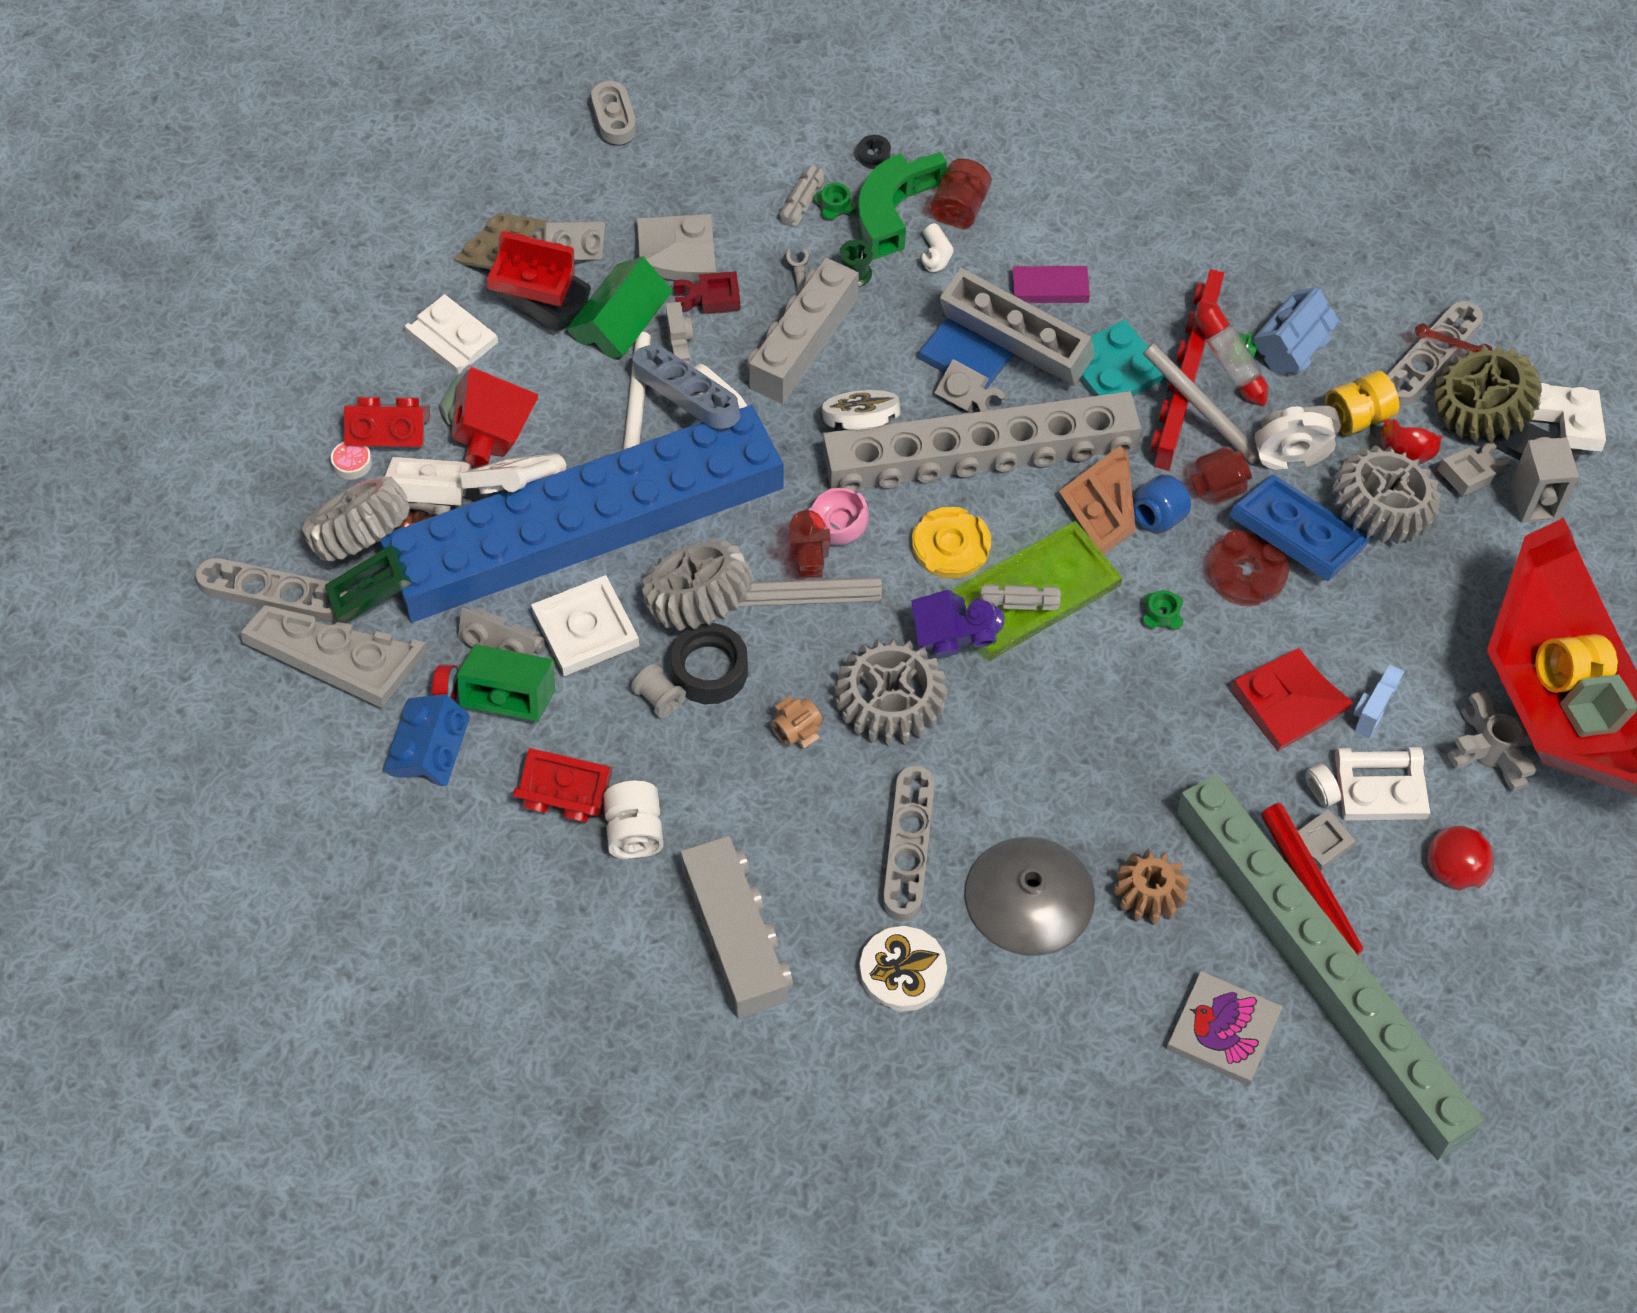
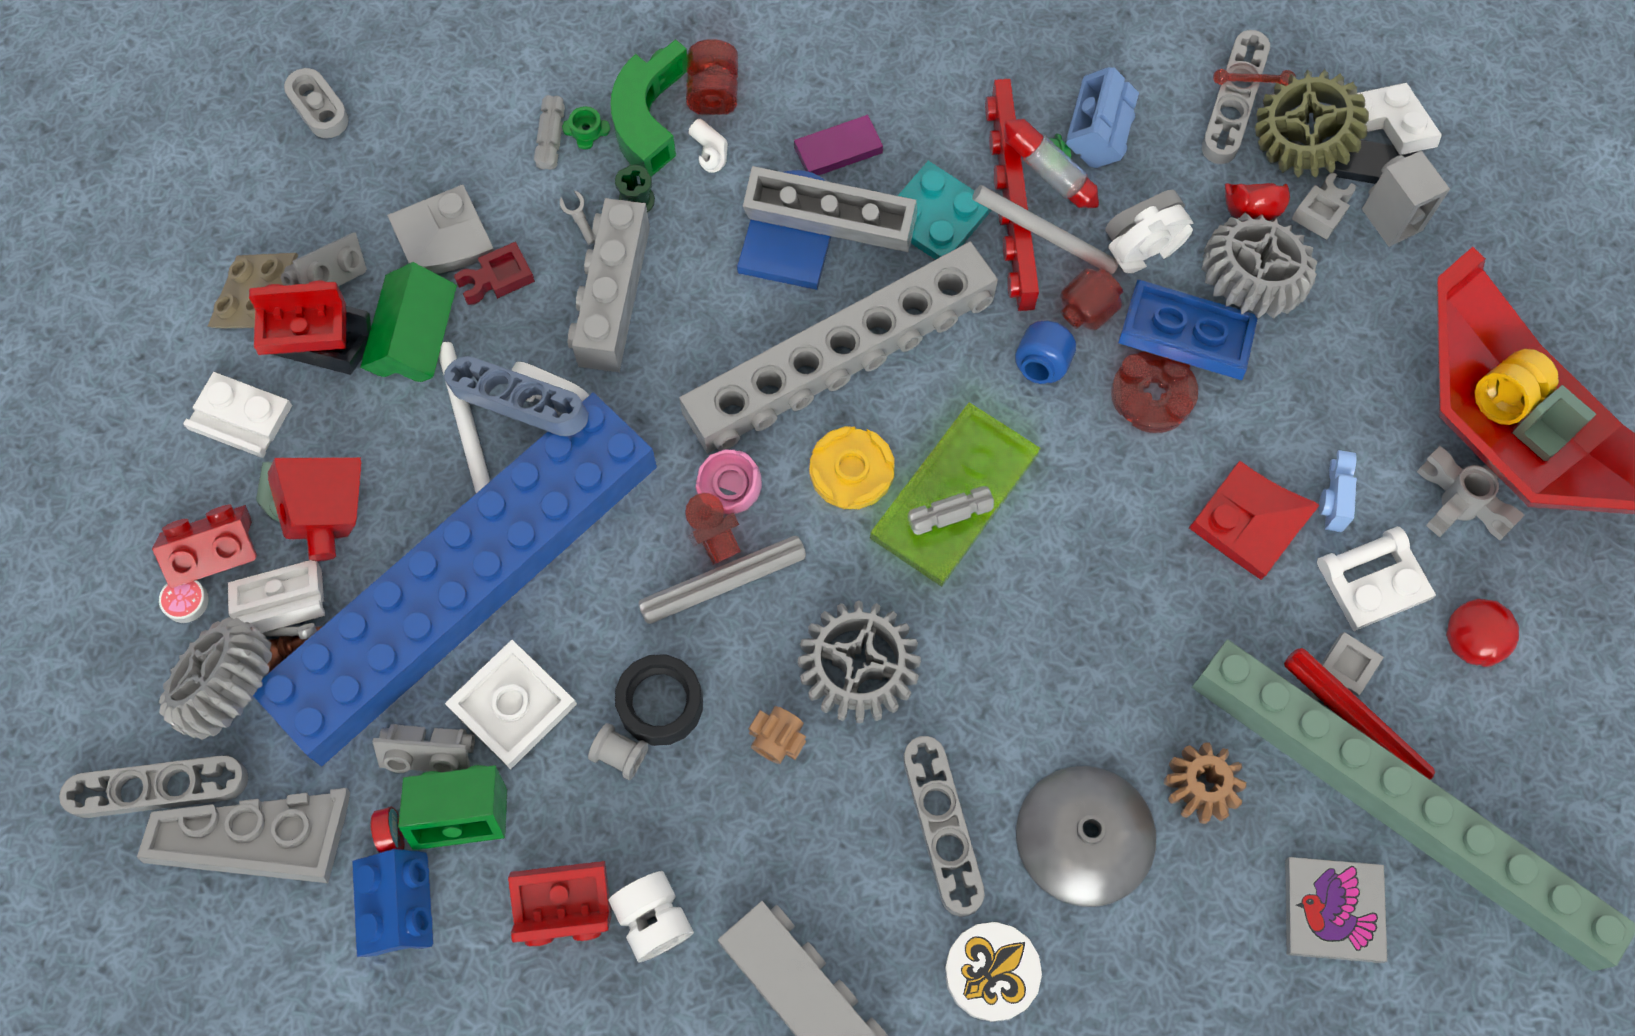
camera: 20 degrees left, 10 degrees up
(370, 590) = (283, 728): dark green tile -> none
(512, 473) = (367, 561): white plate -> none
(678, 330) = (481, 330): light grey plate -> none
(697, 584) = (614, 619): light grey gear -> none
(861, 409) = (705, 354): white tile -> none
(873, 142) = (600, 48): black bush -> none
(946, 625) = (887, 569): dark purple brick -> none
(966, 388) = (799, 291): light grey plate -> none
(1104, 500) = (988, 369): nougat wing -> none
(1163, 600) = (1095, 456): green plate -> none
(1323, 785) = (1324, 604): white tile -> none
(1364, 402) = (1197, 172): yellow wheel -> none

